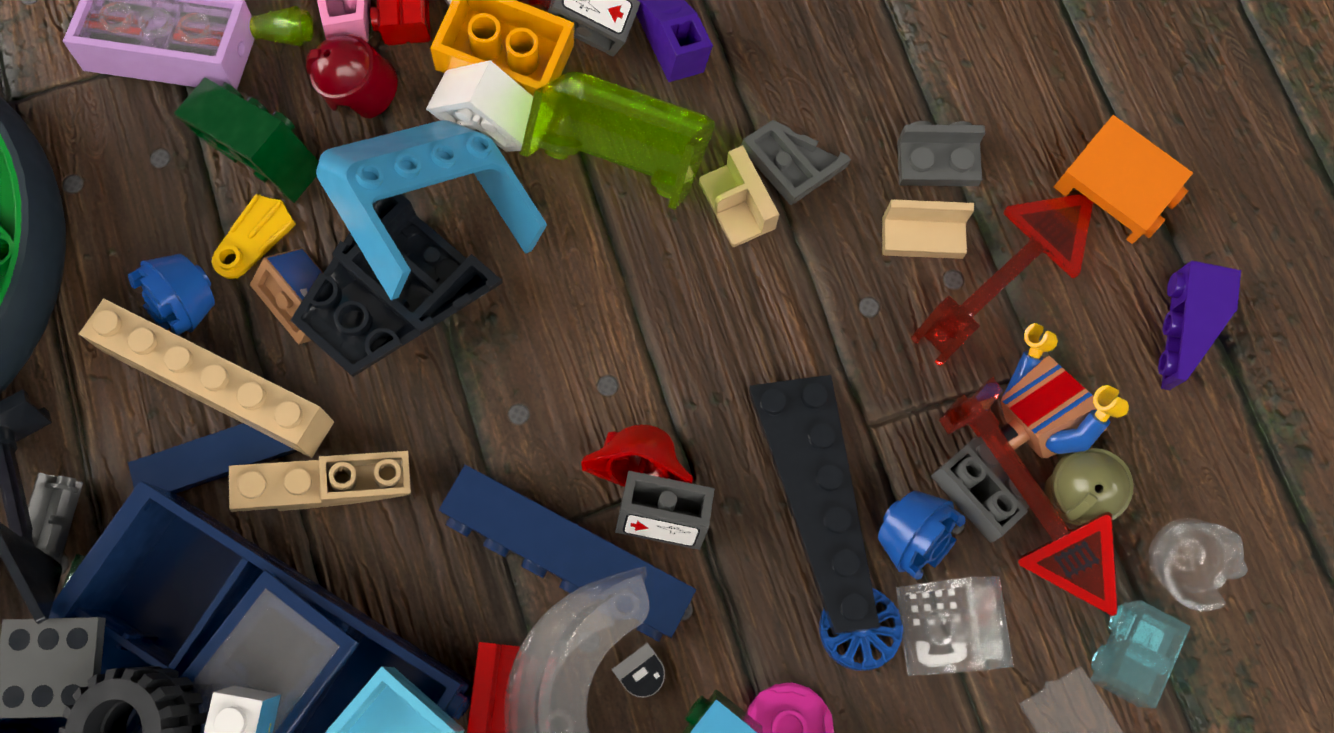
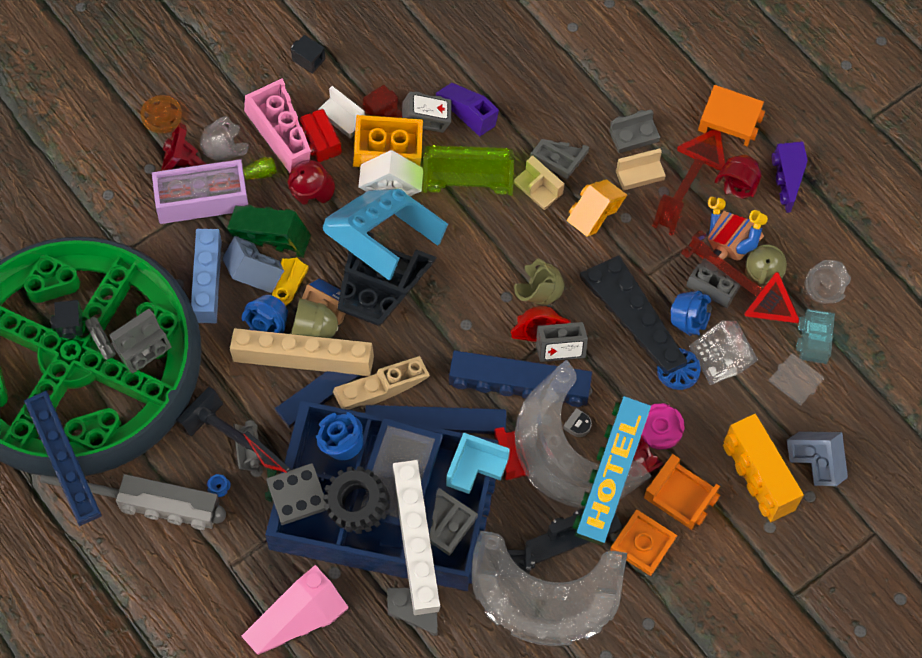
camera: 20 degrees left, 10 degrees down
(111, 185) = (206, 275): none -> medium blue brick
(160, 587) = (340, 436): none -> blue cone
(192, 197) = (250, 266): none -> sand blue panel
(244, 328) = (314, 320): none -> olive helmet
(394, 577) = (452, 419): none -> dark blue tile
(675, 393) = (544, 285): none -> olive helmet
(820, 271) = (595, 205): none -> light orange brick
(1106, 293) = (741, 173): none -> dark red helmet

